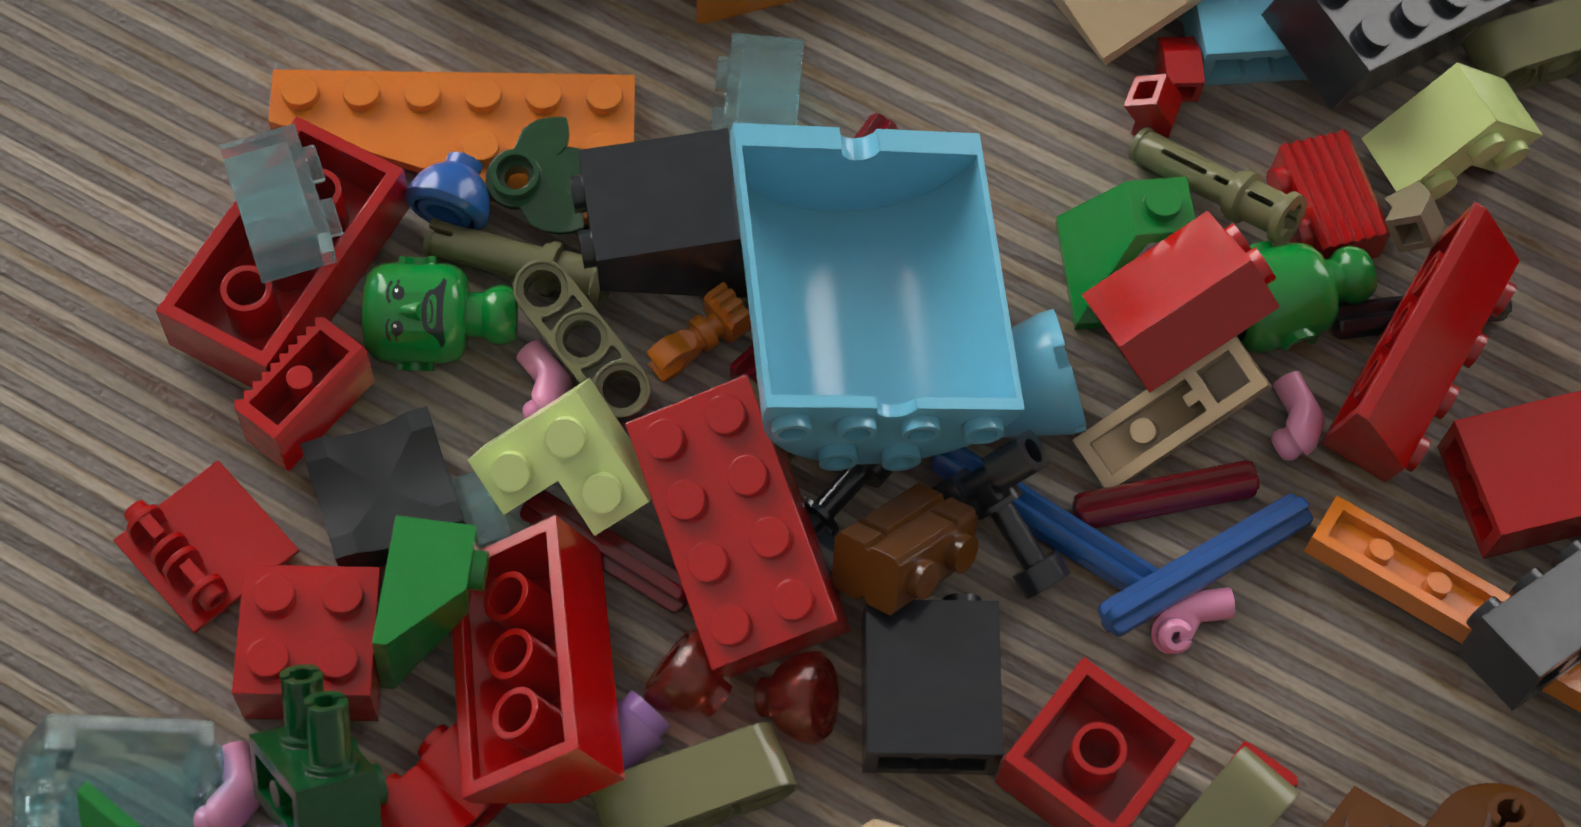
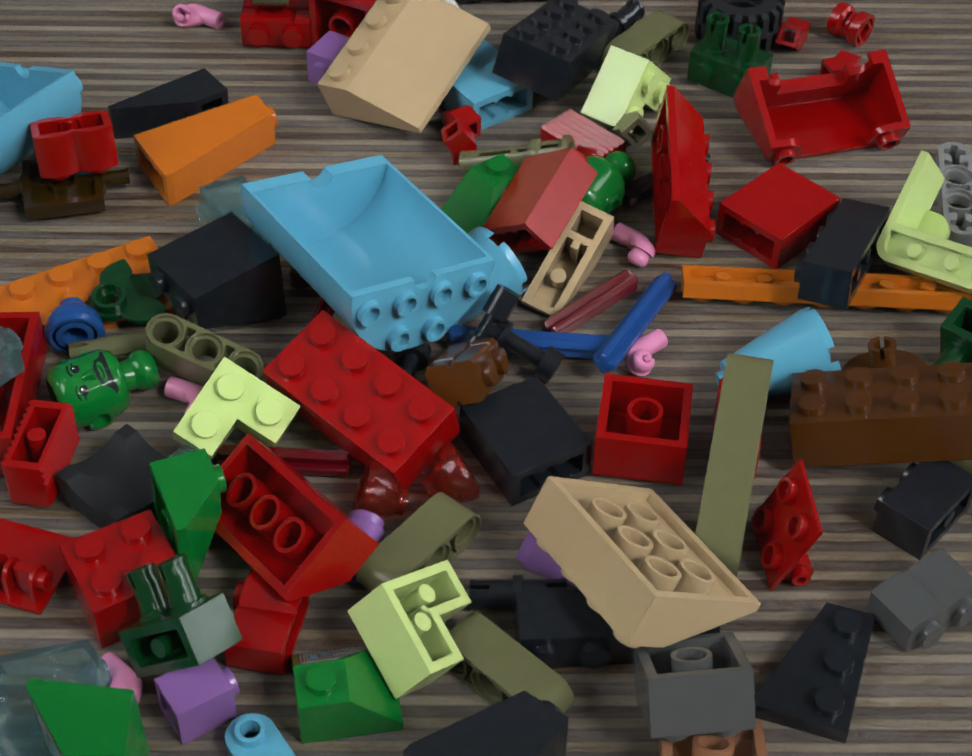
camera: 25 degrees left, 20 degrees down
(723, 318) = (279, 324): orange piece -> none
(1359, 740) = (795, 346): none -> medium azure cone

